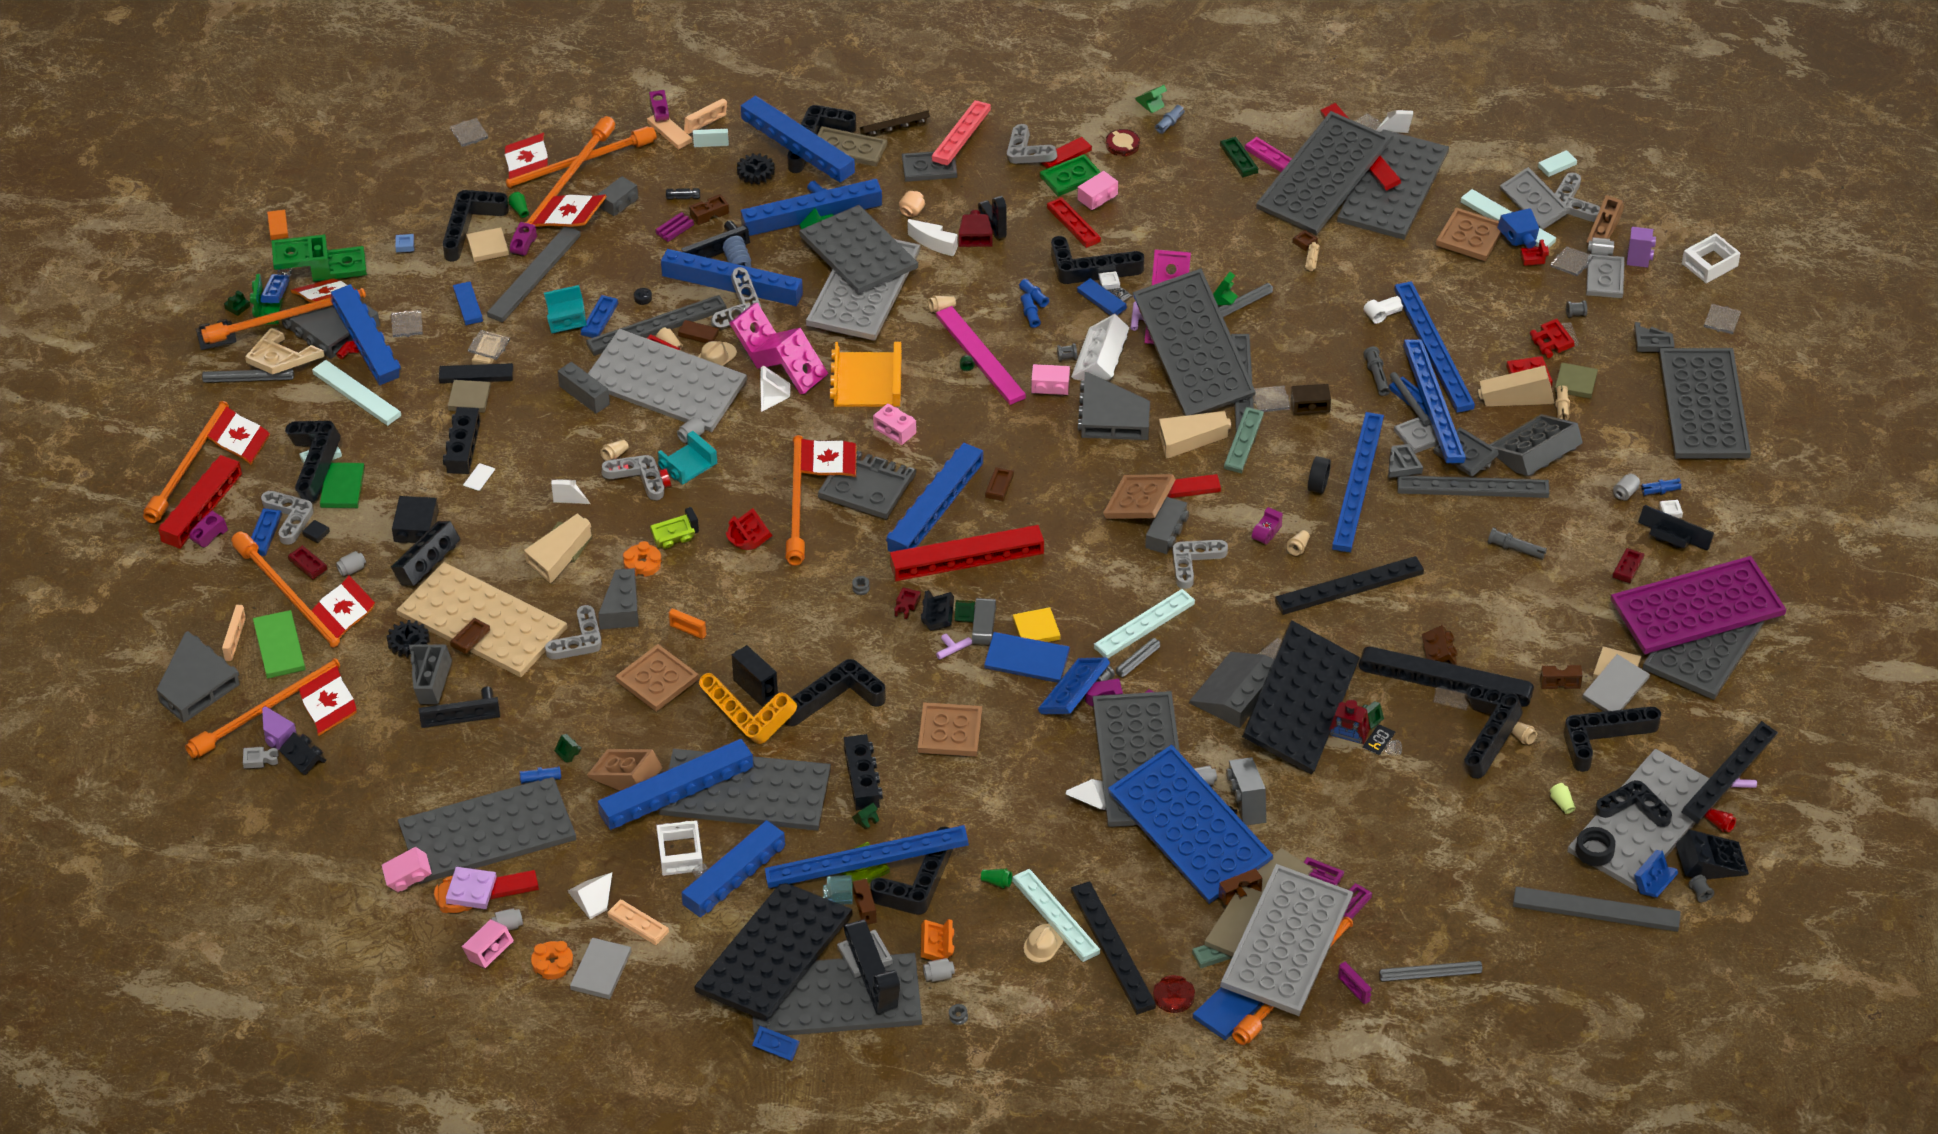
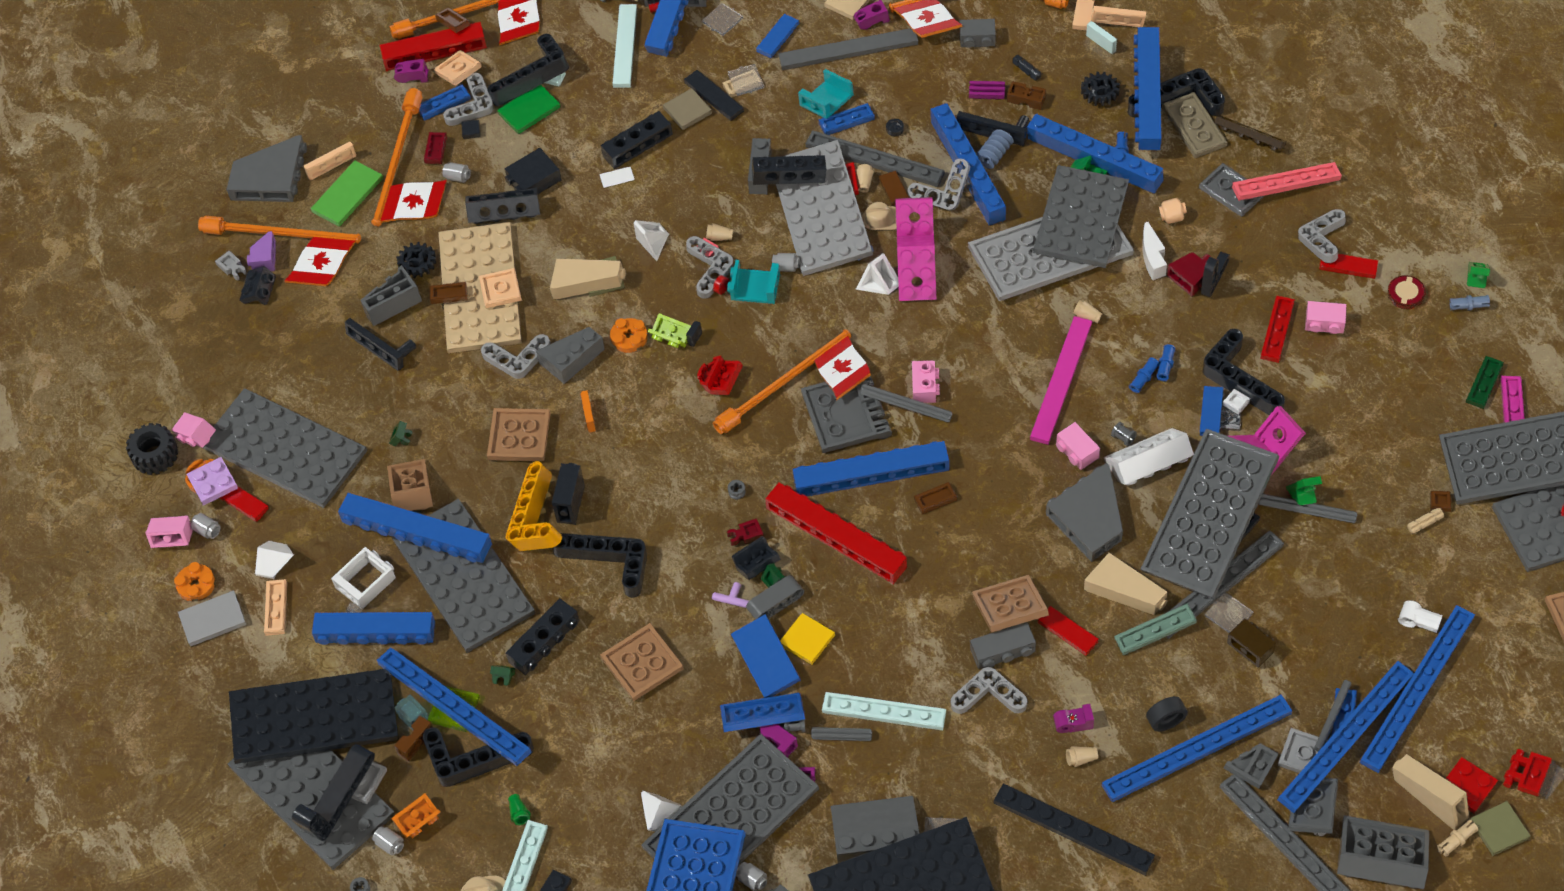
camera: 55 degrees right, 10 degrees up
(195, 469) = (452, 20): none -> reddish brown tile
(243, 500) = (457, 68): none -> light nougat tile
(383, 898) = (148, 437): none -> black tyre
(505, 602) = (500, 288): none -> light nougat tile
(539, 774) = (360, 437): blue pin -> none
(620, 365) = (788, 170): none -> black brick
(776, 1043) = (227, 786): blue plate -> none
(866, 378) = (957, 325): light orange panel -> none
(902, 444) = (906, 403): none -> dark grey axle
(967, 363) = (1041, 377): dark green hinge -> none
(1069, 174) = (1328, 286): green tile -> none
(1375, 365) = (1345, 659): dark grey pin -> none

